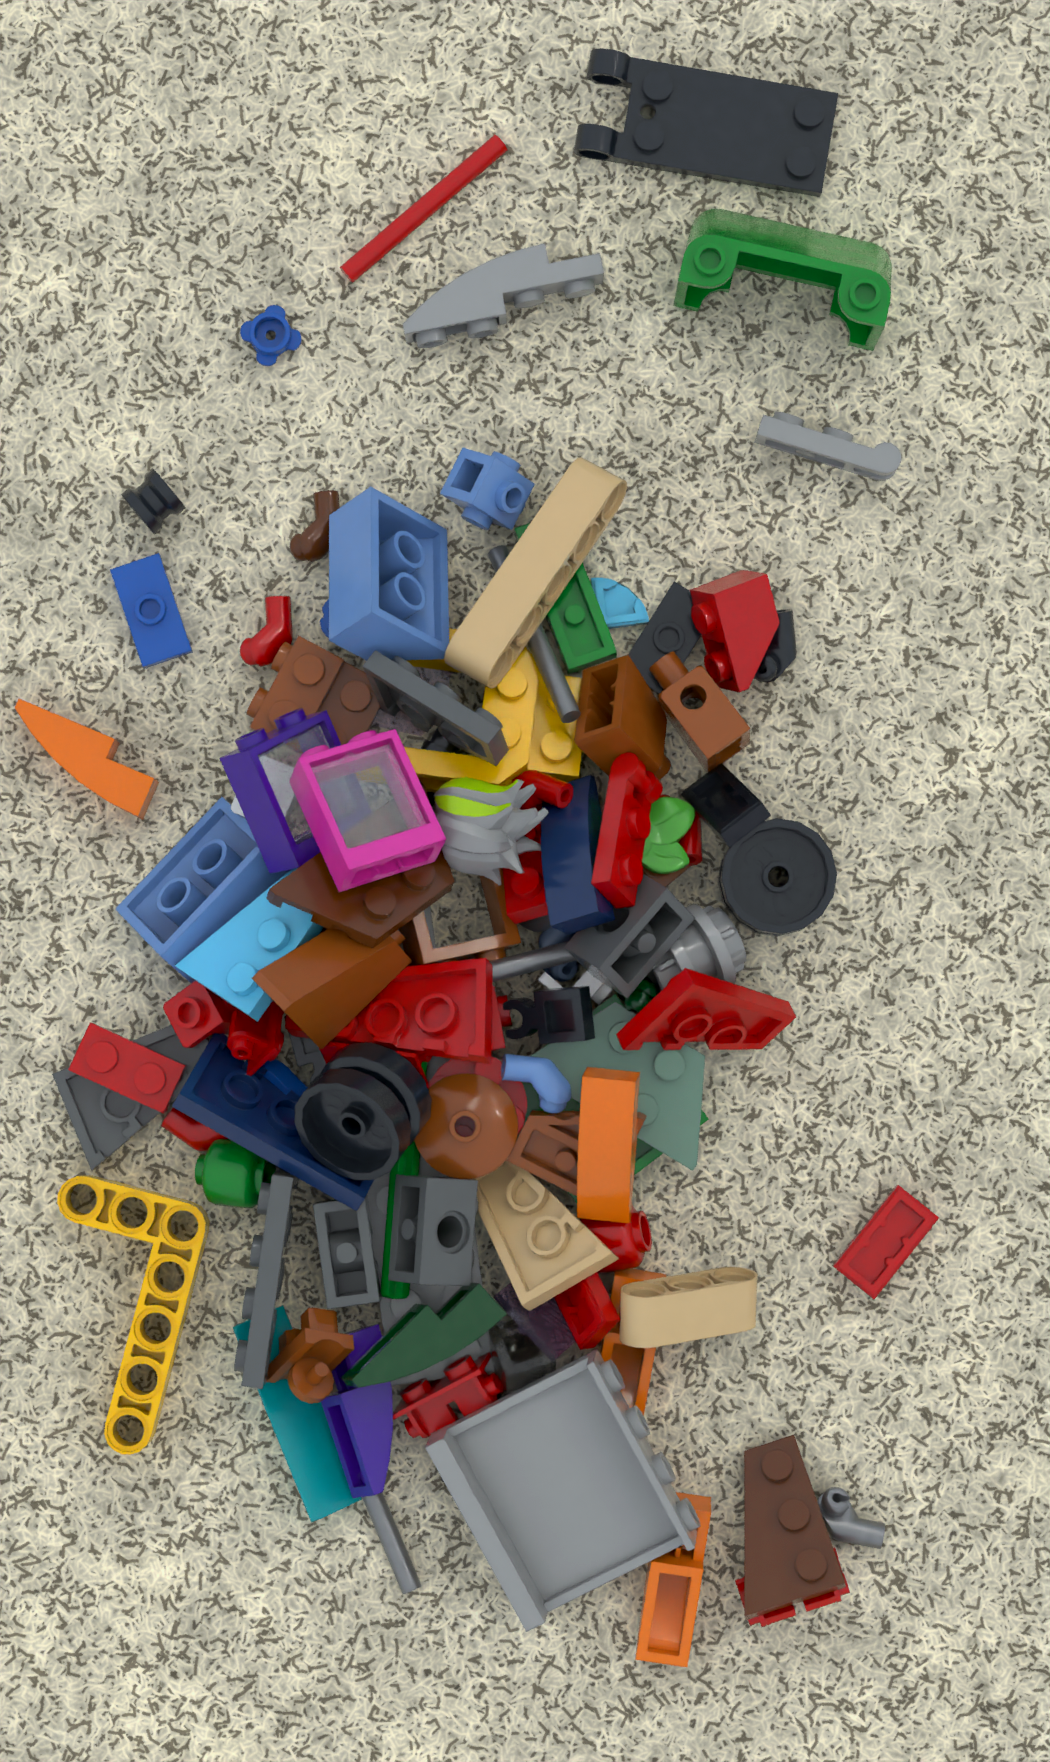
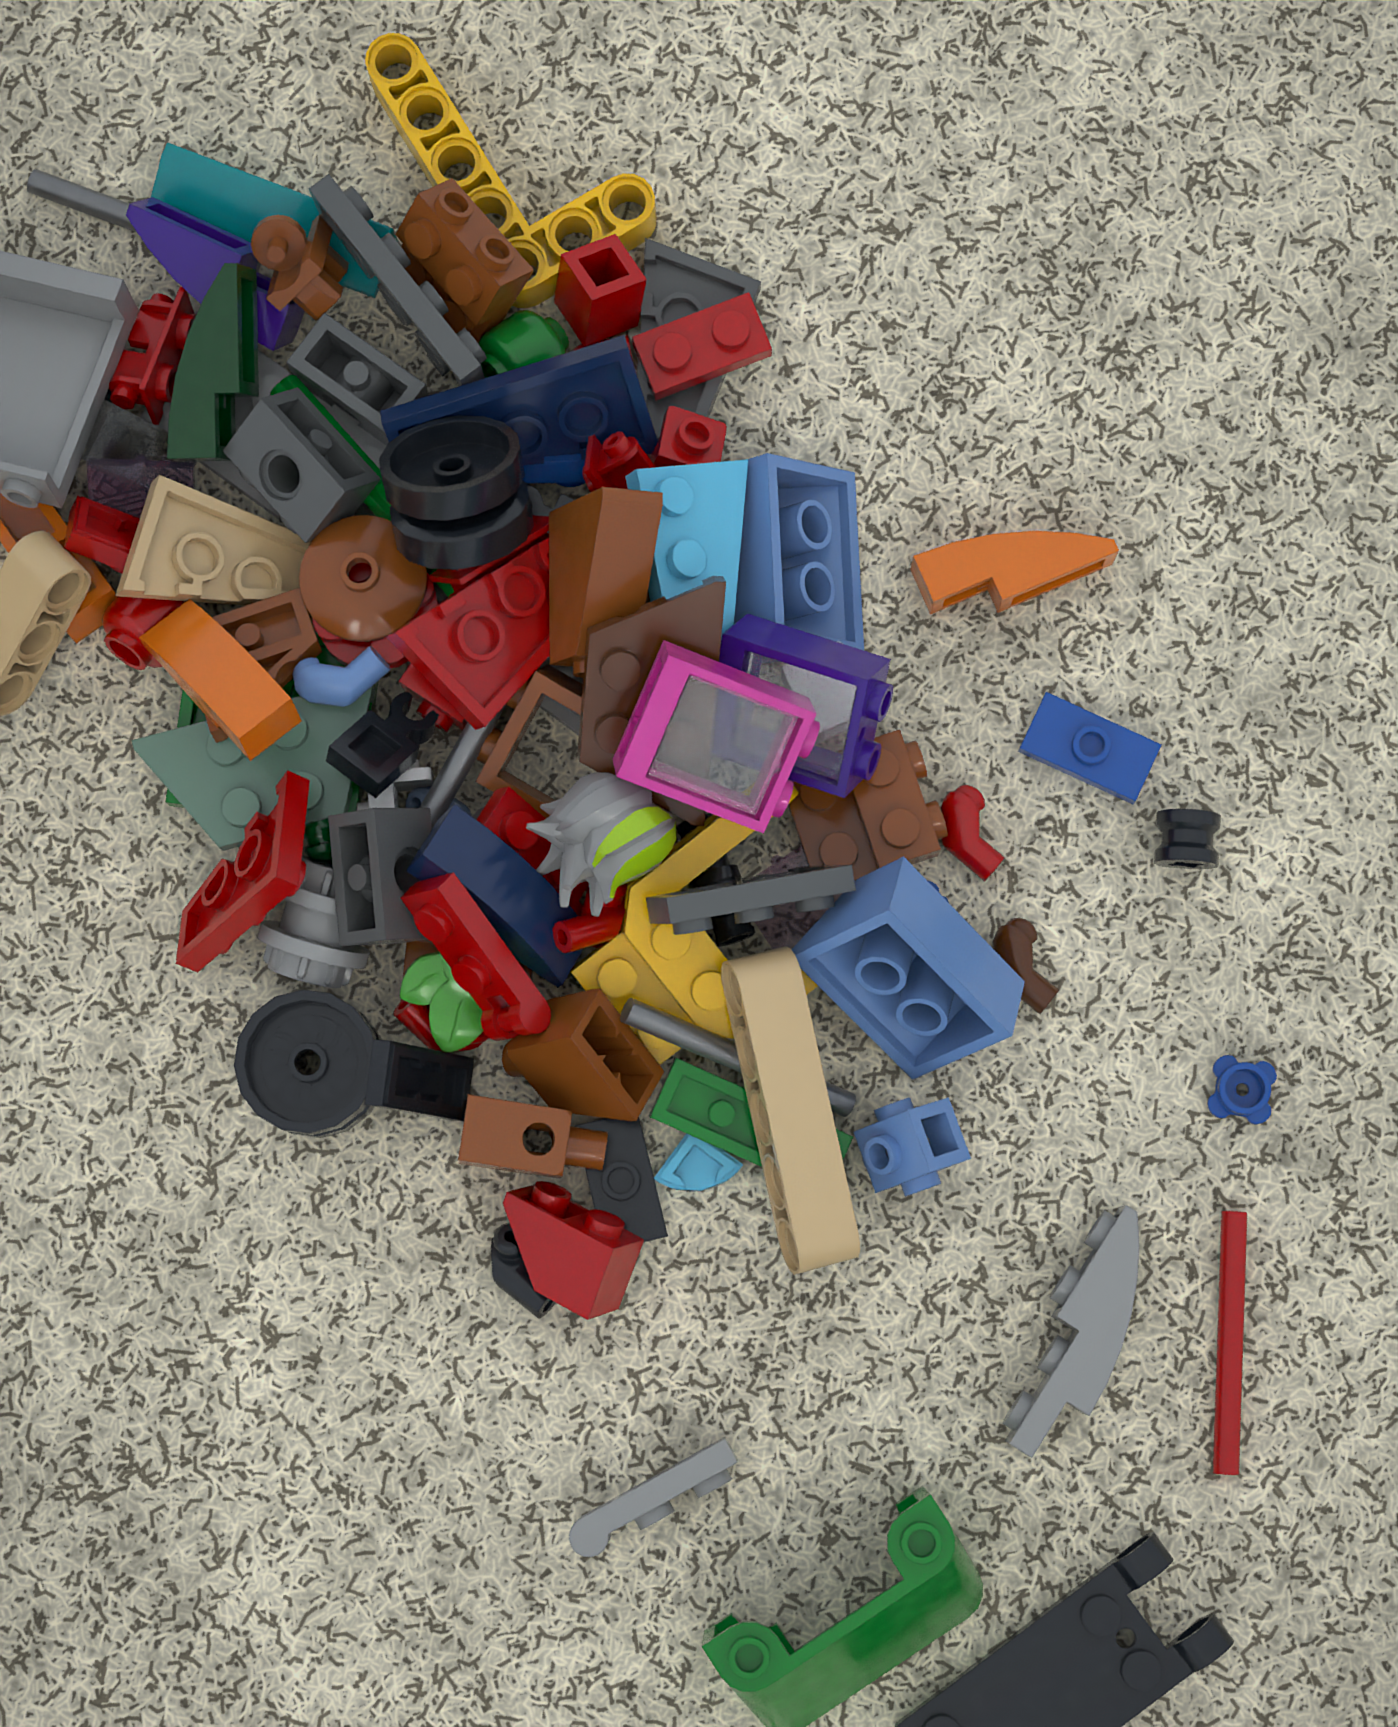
camera: 140 degrees right, 5 degrees down
(151, 1163) = (599, 290): none -> red brick
(214, 1259) = (462, 258): none -> dark orange plate

